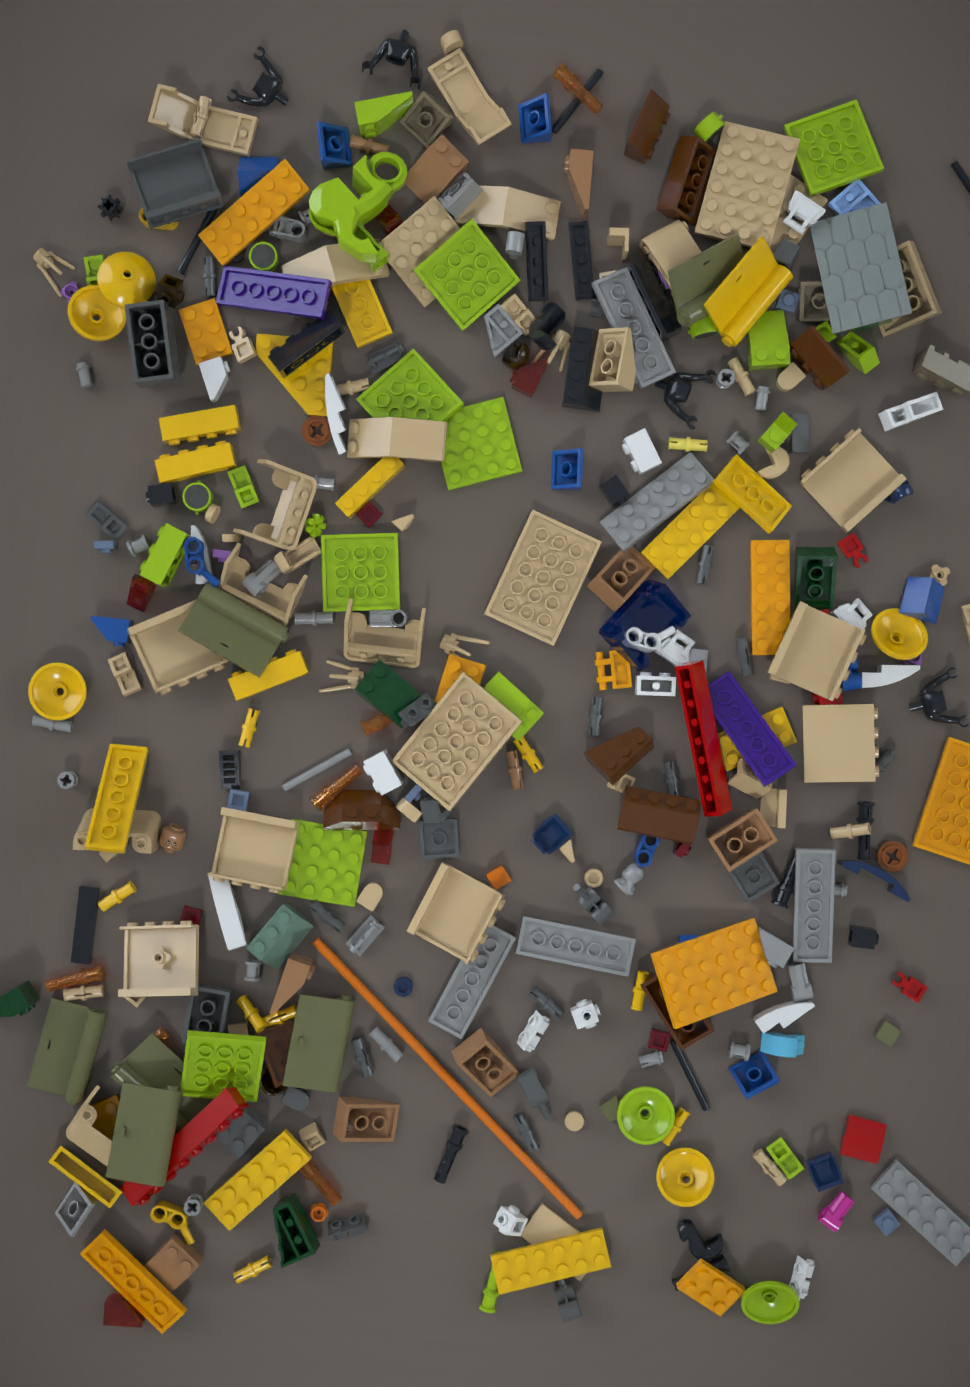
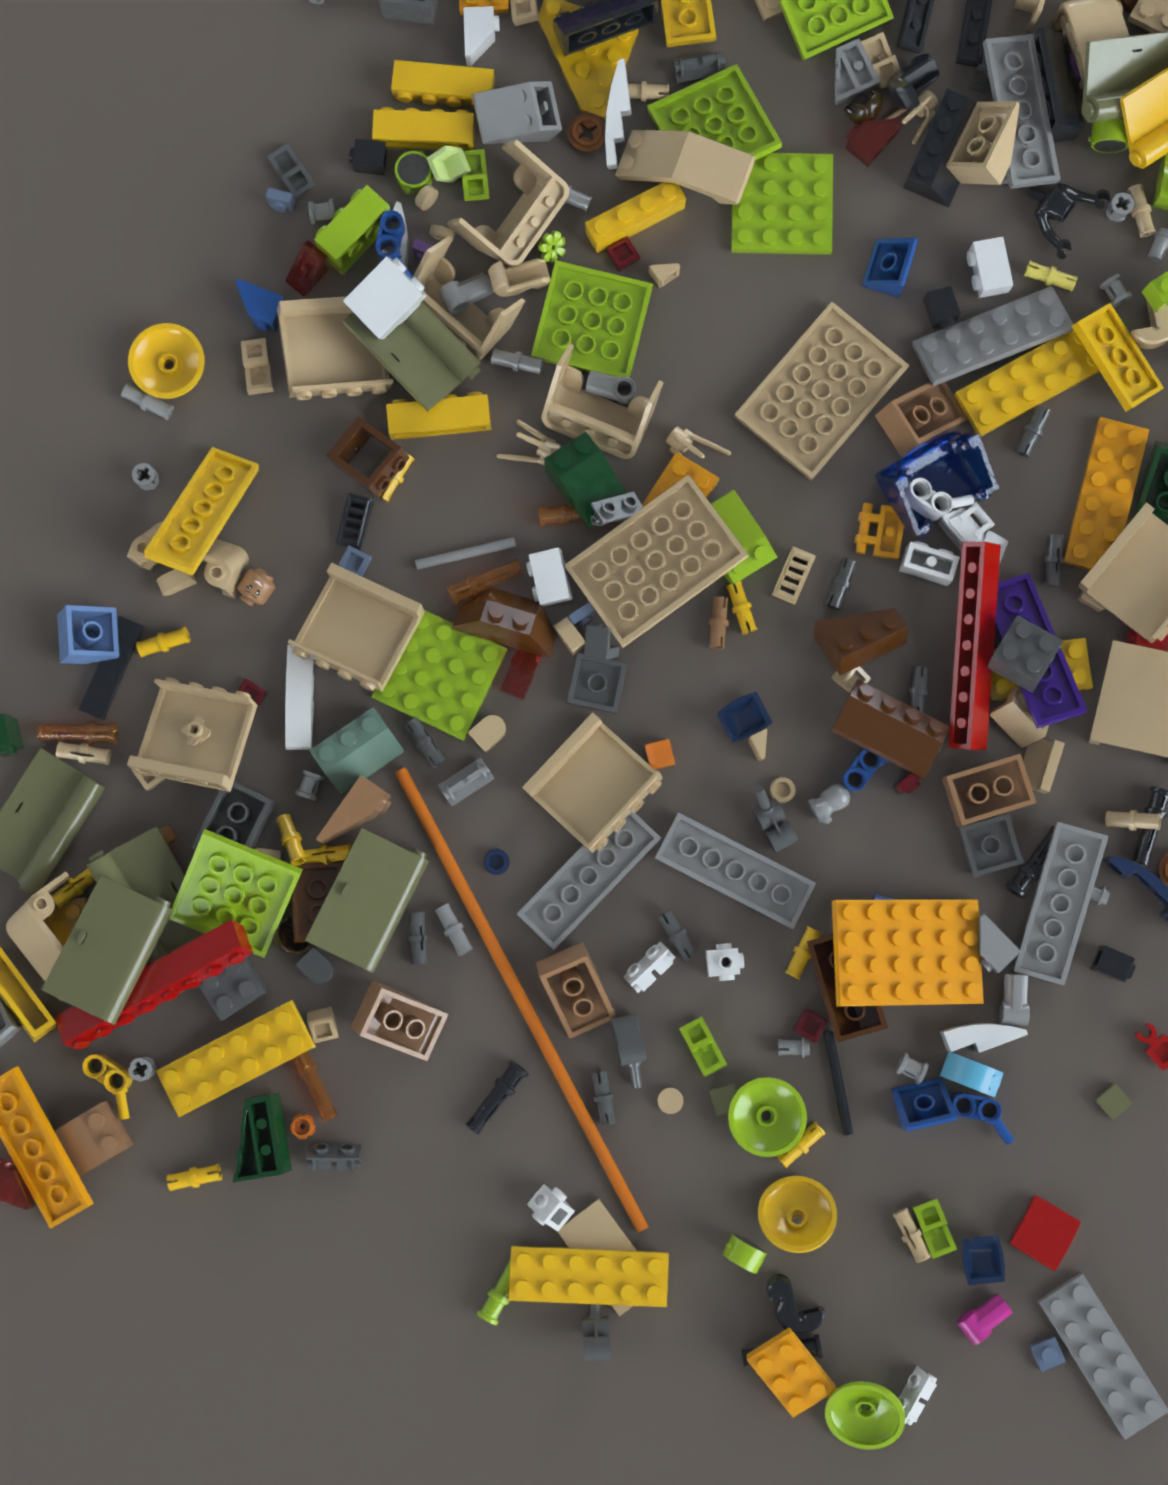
camera: 15 degrees right, 5 degrees down
(61, 907) = (87, 634): none -> medium blue slope
(105, 1092) = (73, 888): none -> yellow pin
(204, 606) = (386, 297): none -> white brick
(210, 715) = (353, 441): none -> reddish brown window
(221, 485) = (448, 164): none -> yellowish green panel
(261, 434) = (518, 113): none -> light grey slope
(567, 705) = (803, 555): none -> tan slope
(587, 1076) = (703, 1046): none -> lime slope
(655, 1214) = (744, 1253): none -> lime piece
(741, 737) = (1025, 654): none -> dark grey brick
(790, 1068) = (974, 1111): none -> blue beam

